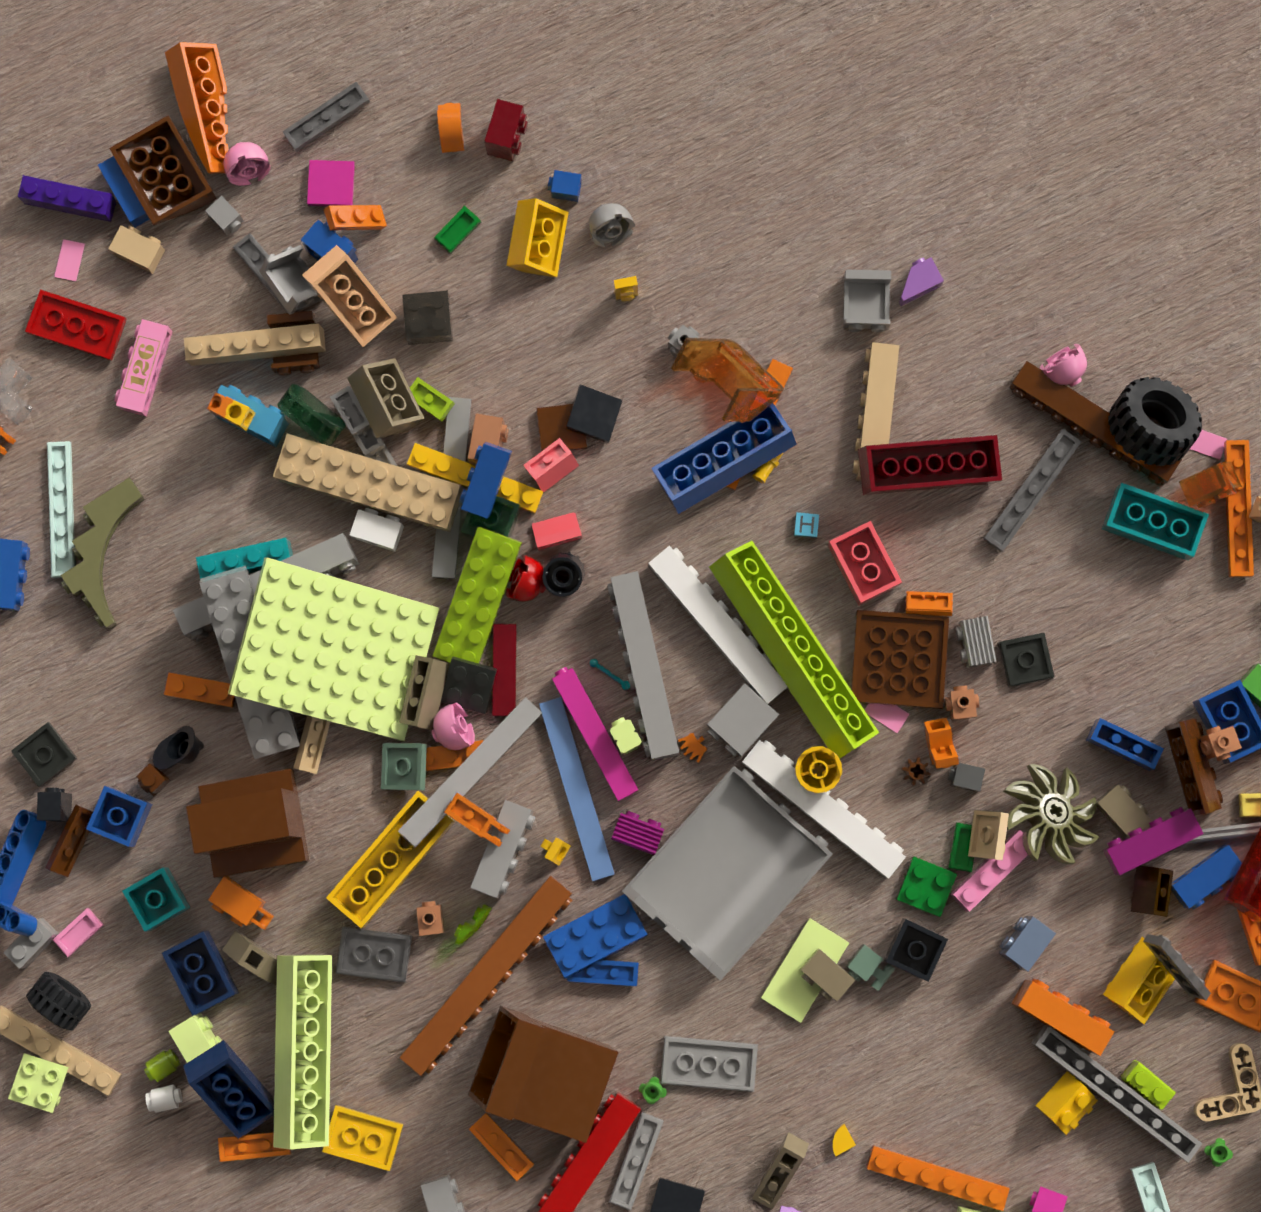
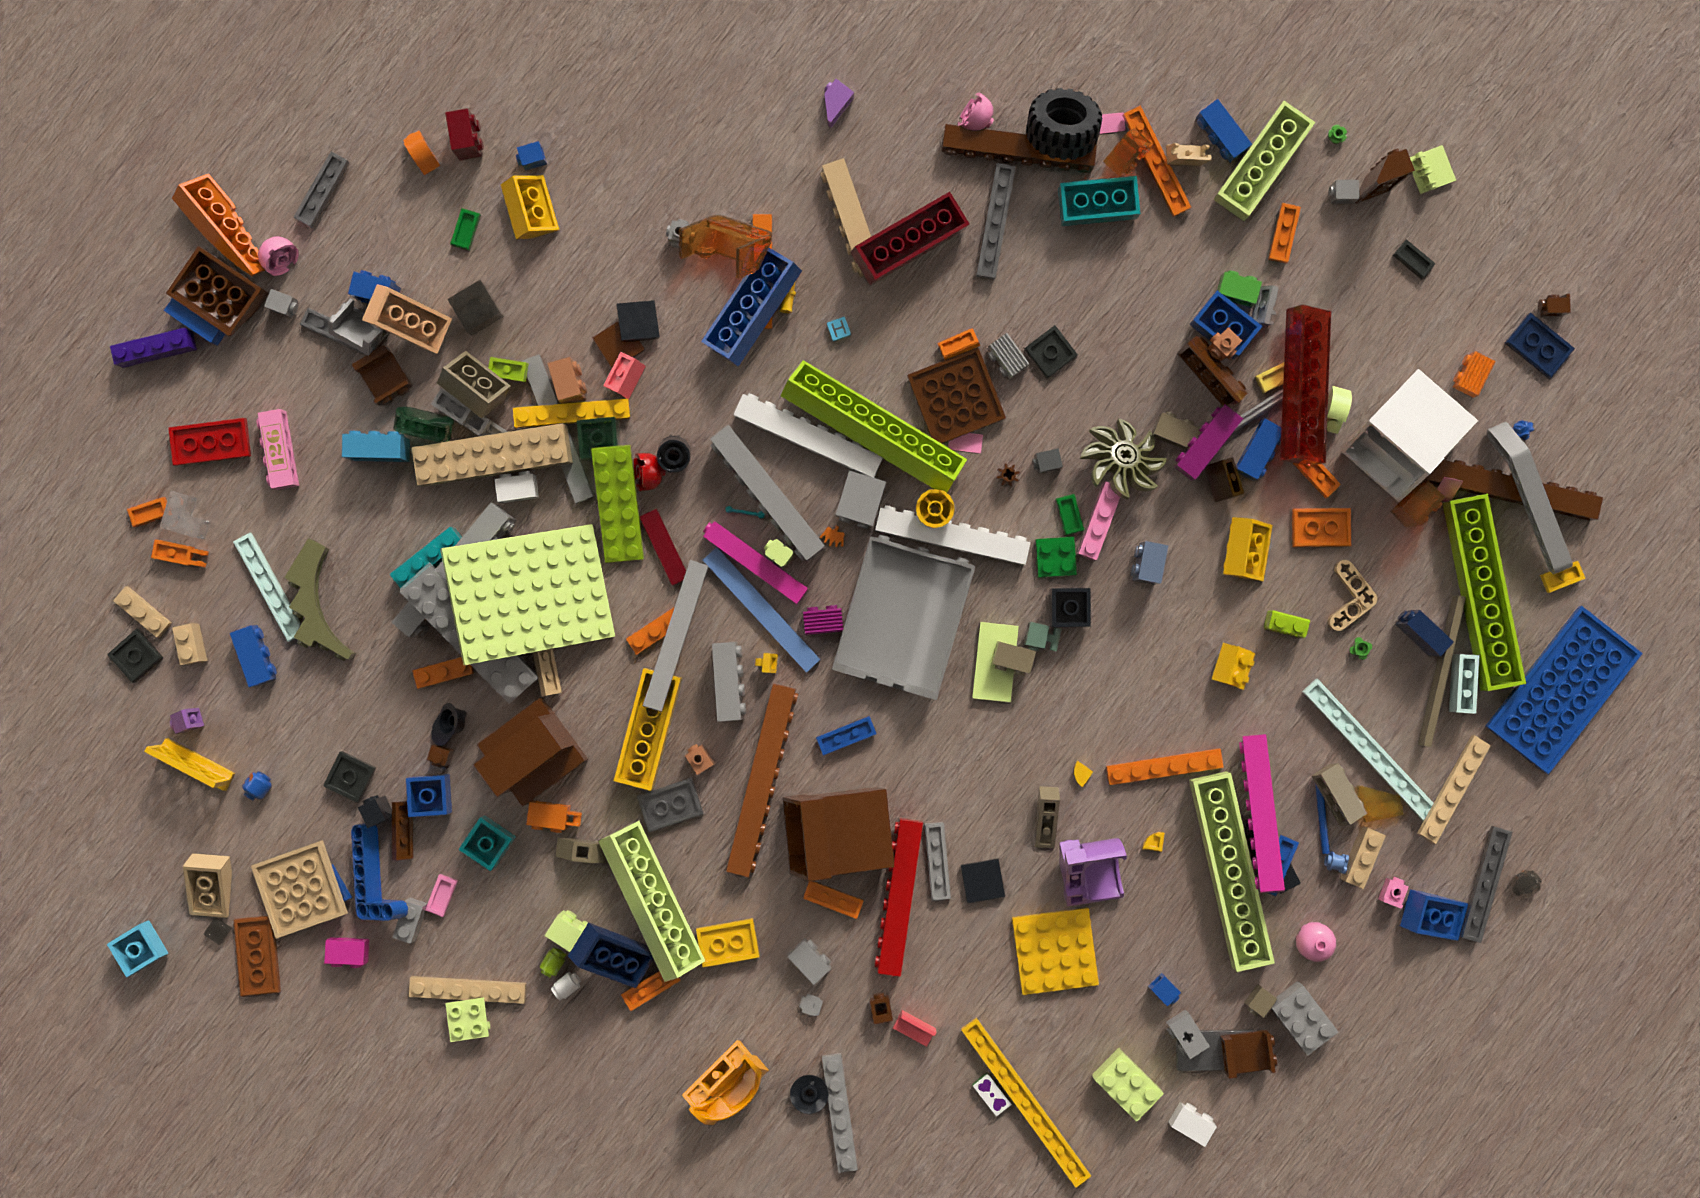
camera: 25 degrees left, 5 degrees up
(58, 1001) = (451, 952): black tyre -> none
(69, 260) = (180, 394): bright pink sticker -> none
(137, 249) = (227, 361): tan brick -> none
(200, 973) = (547, 881): dark blue brick -> none
(231, 411) = (360, 450): leg -> none
(254, 344) = (353, 391): tan brick -> none
(330, 183) = (351, 239): dark pink tile -> none
(355, 217) = (381, 257): orange plate -> none
(403, 766) = (624, 655): sand green plate -> none
(424, 692) = (612, 593): dark tan brick -> none
(452, 729) = (646, 610): bright pink cylinder -> none
(468, 929) = (731, 752): clear neon green slope -> none
(469, 684) = (643, 571): pearl dark grey plate -> none
(474, 818) = (695, 668): orange hinge -> none
(485, 479) = (579, 410): blue brick -> none
(556, 531) = (653, 423): coral panel -> none
(595, 936) = (827, 712): blue plate -> none
(610, 224) = (580, 169): light grey cylinder -> none
(626, 288) = (615, 213): yellow plate -> none
(652, 1097) = (926, 810): bright green plate -> none
(709, 1063) = (957, 764): light grey tile -> none
(864, 563) = (896, 336): coral brick -> none
(866, 300) = (802, 135): light grey panel -> none
(940, 743) = (1016, 445): orange brick -> none
(953, 704) = (1018, 414): nougat brick -> none
(988, 835) = (1084, 496): tan plate -> none
(1067, 1019) = (1205, 605): orange brick -> none
(1116, 1093) = (1266, 641): light grey brick -> none
(1124, 744) = (1153, 380): blue brick -> none
(1176, 966) = (1269, 527): flat silver plate -> none

